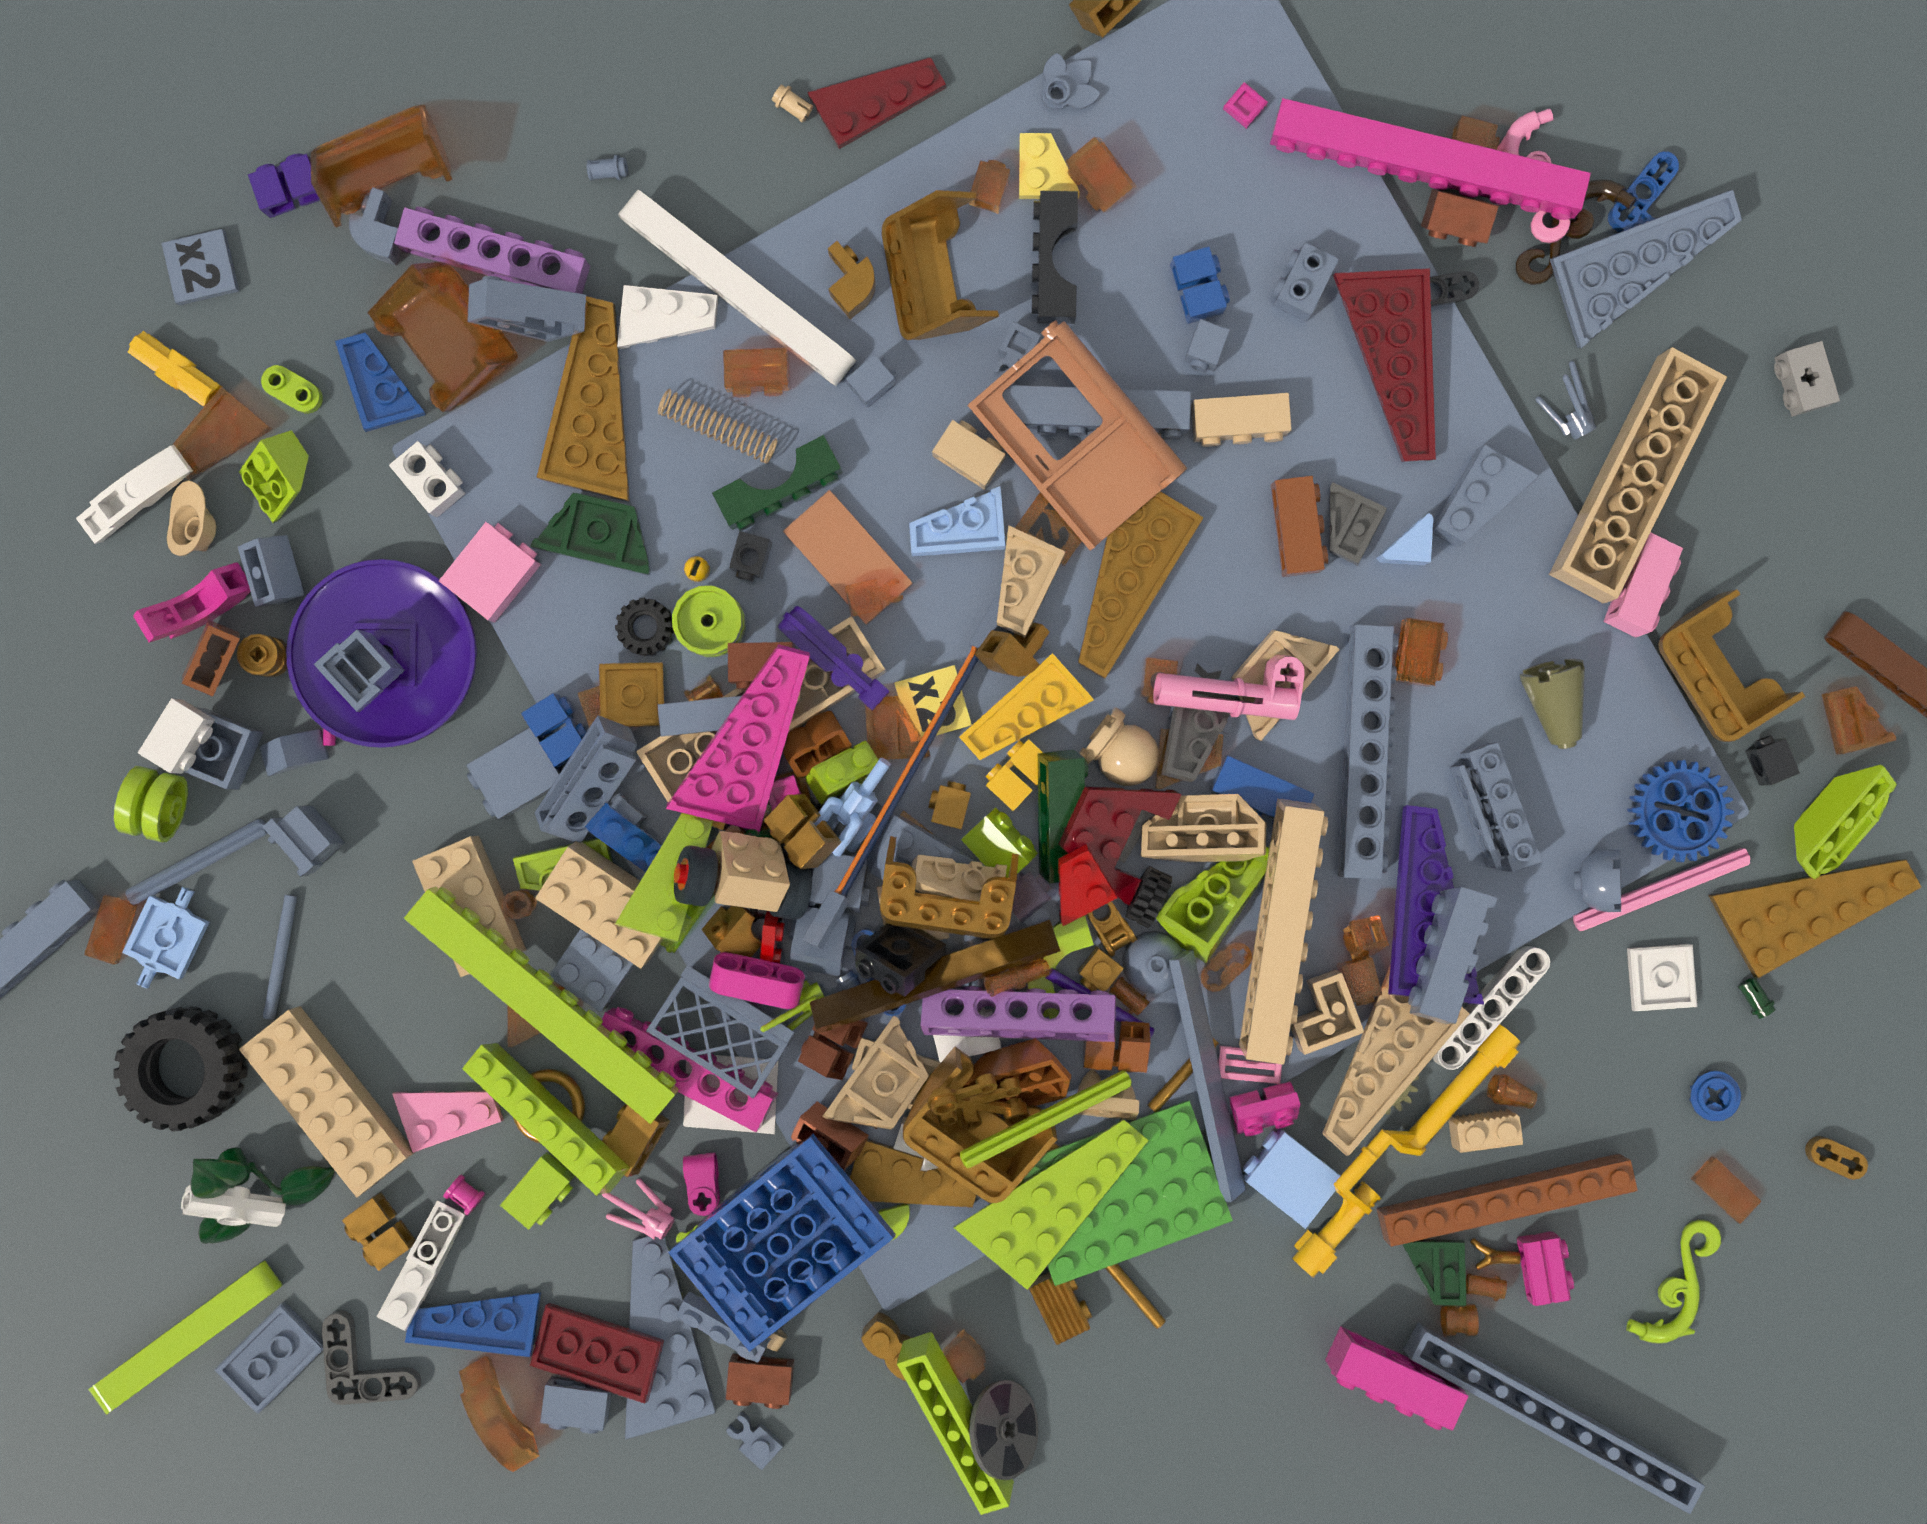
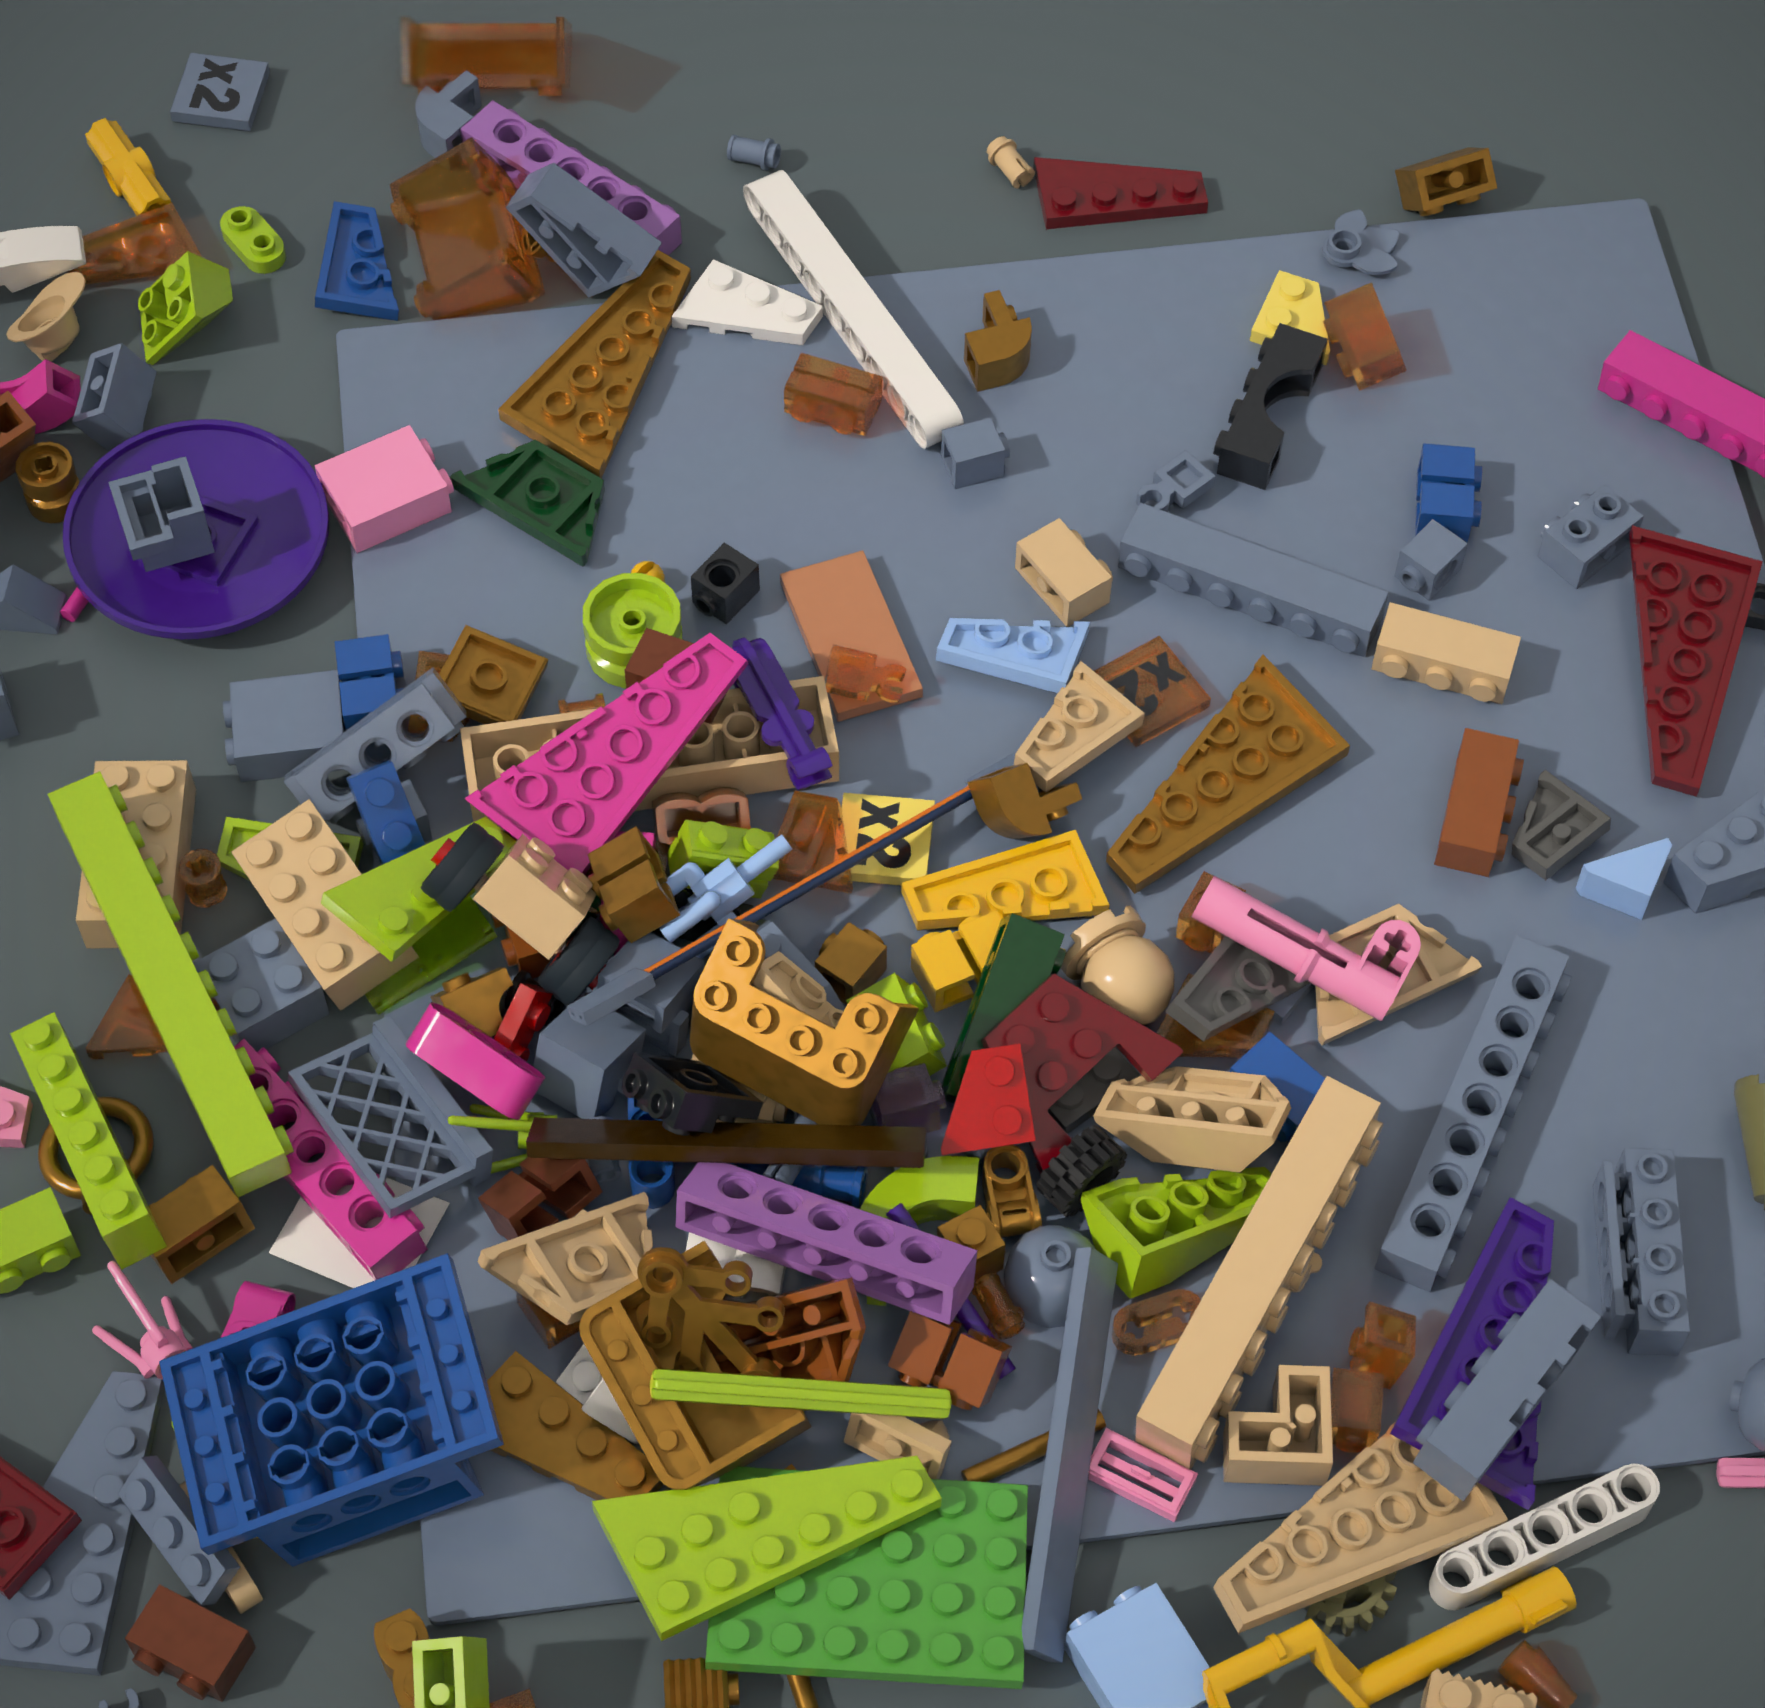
camera: 15 degrees right, 30 degrees down
(279, 185) = (354, 38): dark purple piece -> none
(423, 483) = (363, 367): white brick -> none
(626, 622) = (546, 595): black tyre -> none
(660, 411) = (756, 439): tan piece -> none
(694, 716) = (548, 706): sand blue tile -> none
(813, 467) = (850, 520): dark green arch -> none
(839, 1138) = (493, 1324): copper brick -> none
(896, 1217) = (507, 1487): lime tile -> none
(922, 269) = (1095, 350): pearl gold windscreen -> none
(990, 185) = (1217, 308): clear orange brick -> none
(1016, 977) = (845, 1184): clear orange pin -> none
(1105, 473) = (1240, 643): nougat piece -> none
(1245, 105) = (1580, 337): dark pink tile -> none
(1278, 1109) = (1138, 1543): dark pink plate -> none
(1420, 652) = (1596, 1012): clear orange brick -> none

